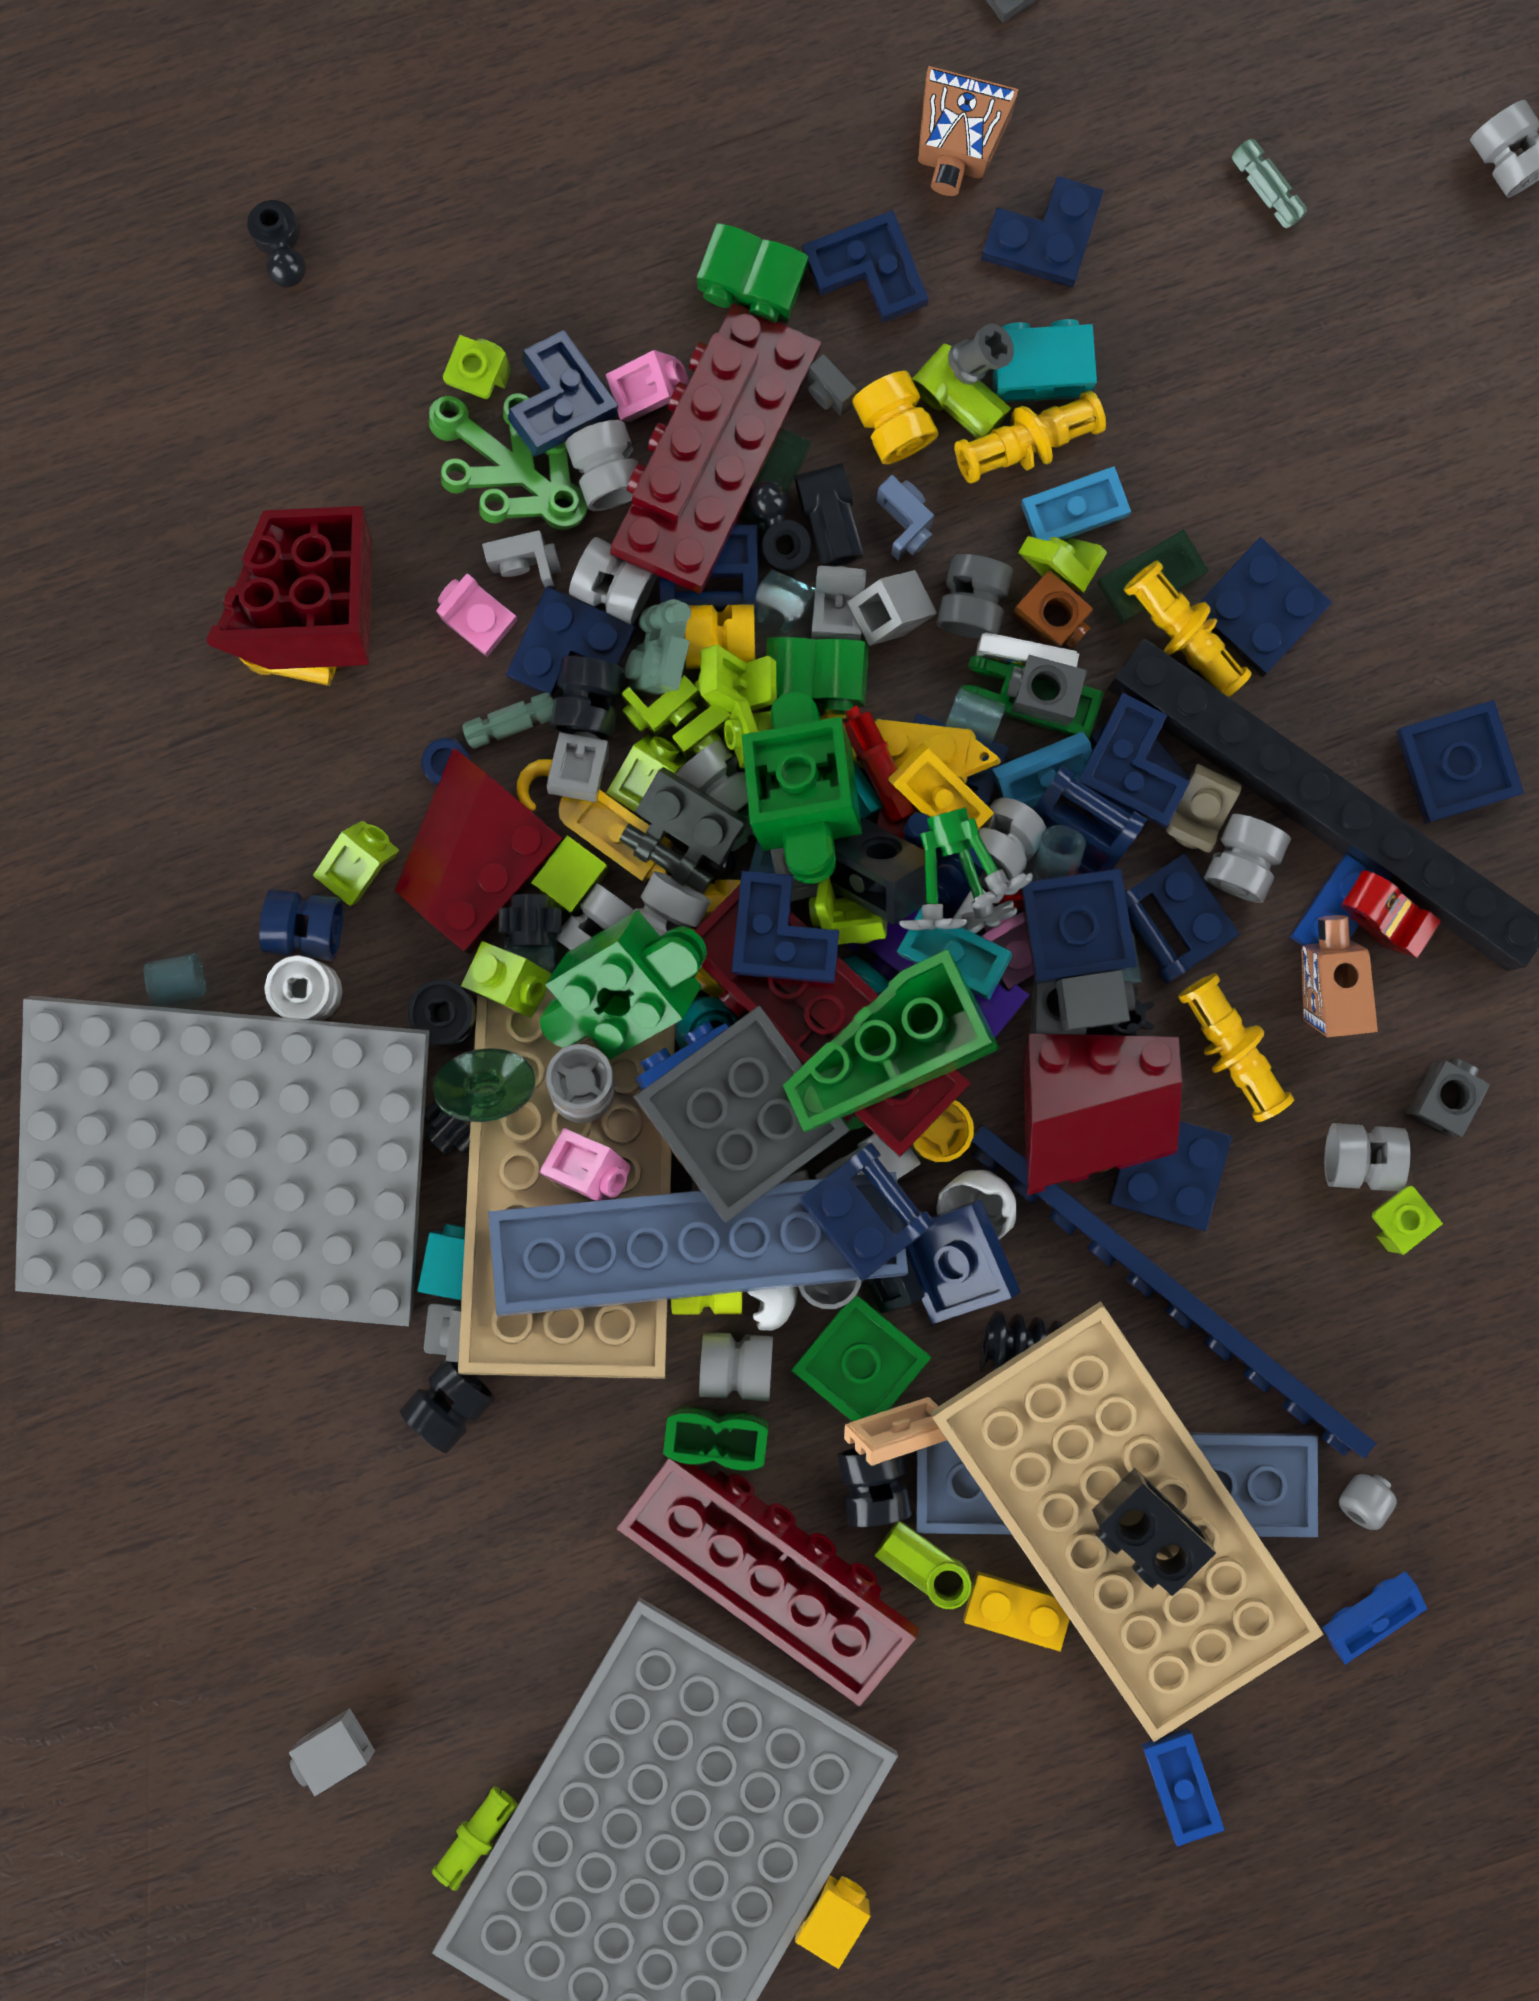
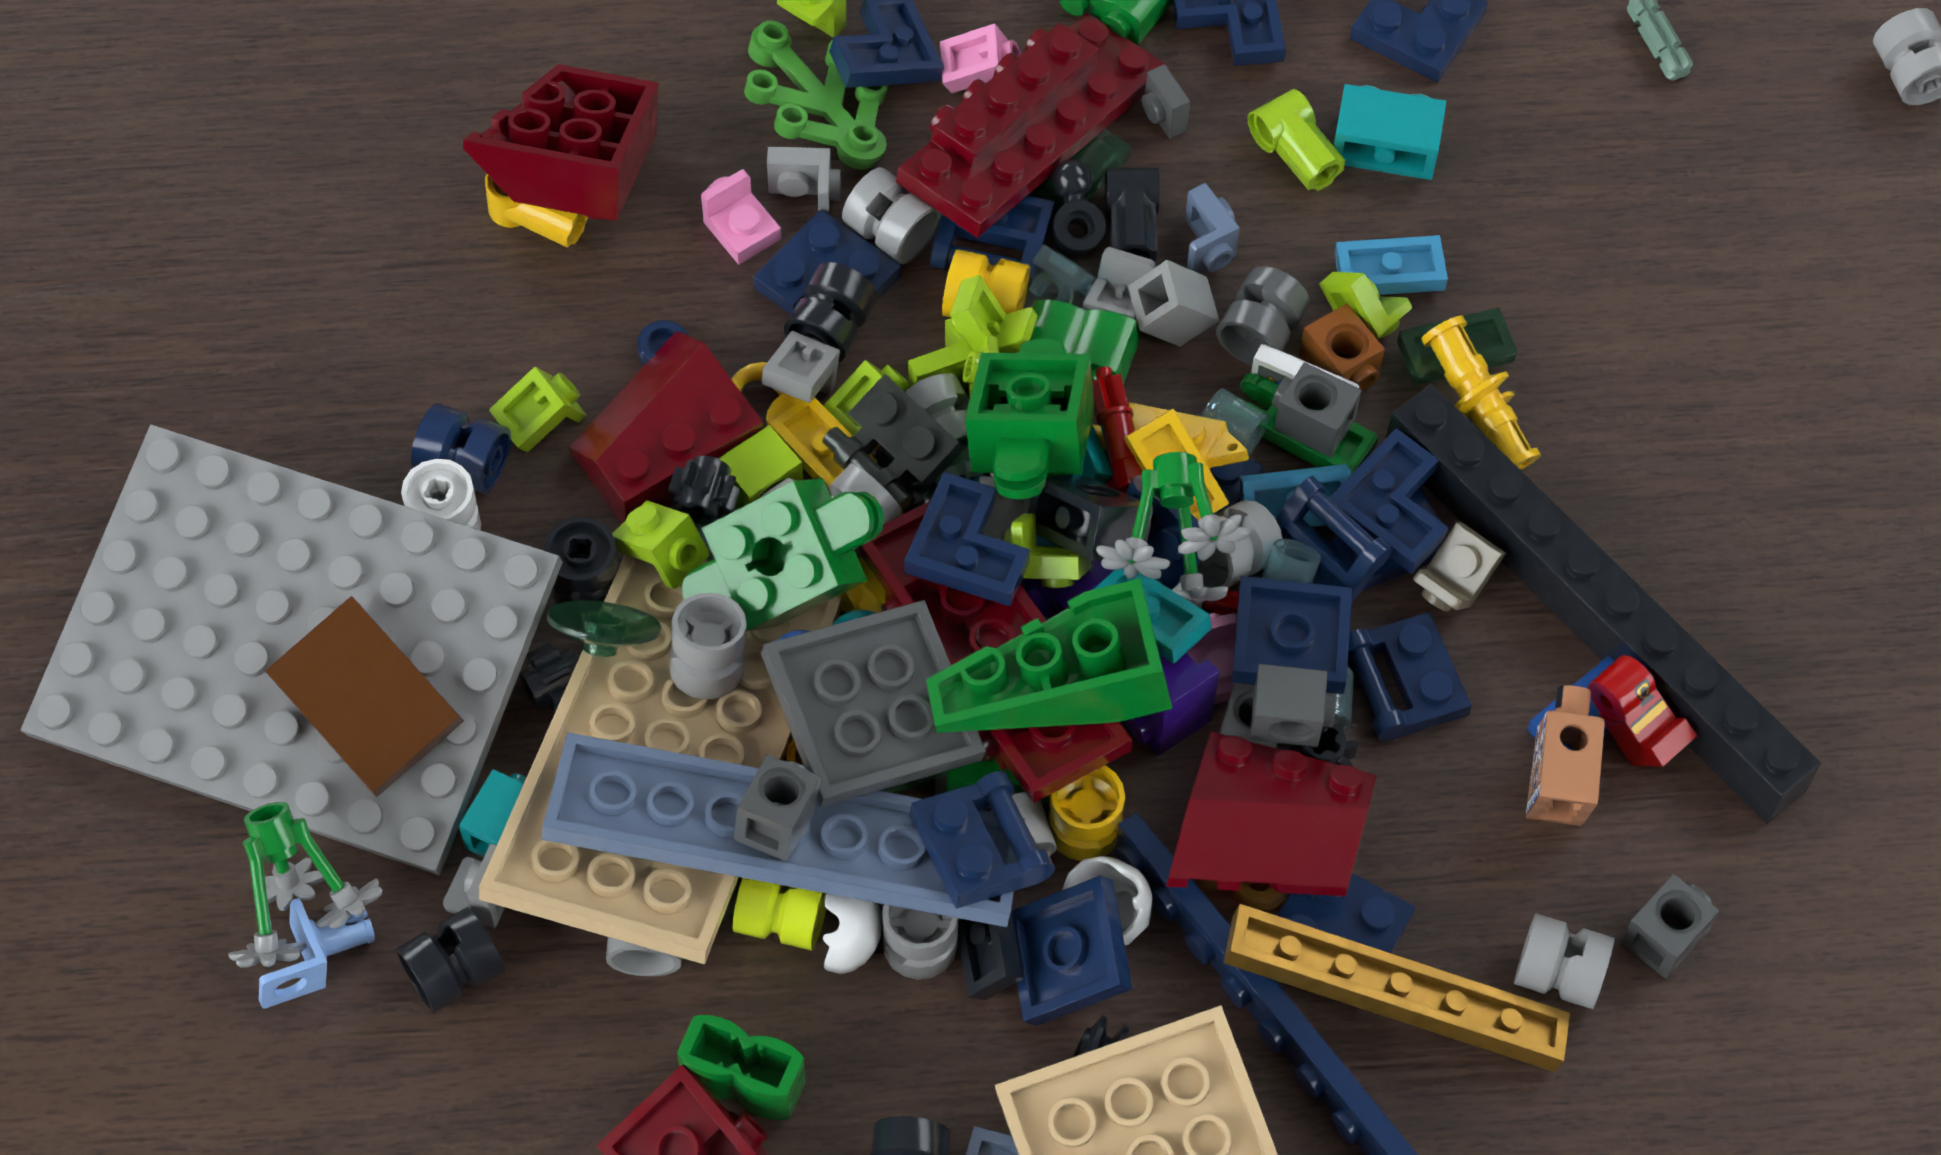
camera: 10 degrees right, 25 degrees down
(174, 979) = (312, 461): clear light blue beam -> none
(281, 1365) = (274, 838): none -> plant
(299, 1204) = (364, 696): none -> reddish brown tile
(334, 1413) = (319, 945): none -> light blue bracket
(508, 720) = (740, 321): sand green axle -> none
(586, 1167) = (687, 724): bright pink bracket -> none
(602, 456) = (910, 102): light grey wheel -> none
(660, 660) = (922, 276): sand green plate -> none
(670, 708) = (905, 341): lime bracket -> none
(690, 1264) = (772, 826): none -> dark grey brick
(735, 1366) = (782, 1000): light grey wheel -> none
(860, 1361) = (930, 1040): green plate -> none
(891, 410) = (1223, 140): yellow wheel -> none
(895, 1431) = (949, 1108): light nougat tile -> none
(986, 351) = (1324, 95): dark grey bush -> none
(1030, 435) = (1358, 188): yellow piece -> none
(1234, 1225) = (1397, 988): none -> pearl gold plate
(1236, 1047) = (1438, 813): yellow piece -> none
(1247, 858) = (1496, 627): light grey wheel -> none
(1263, 606) = (1570, 404): dark blue plate -> none
(1405, 1221) = (1595, 1035): lime bracket -> none
(1459, 761) = (1751, 596): dark blue plate -> none

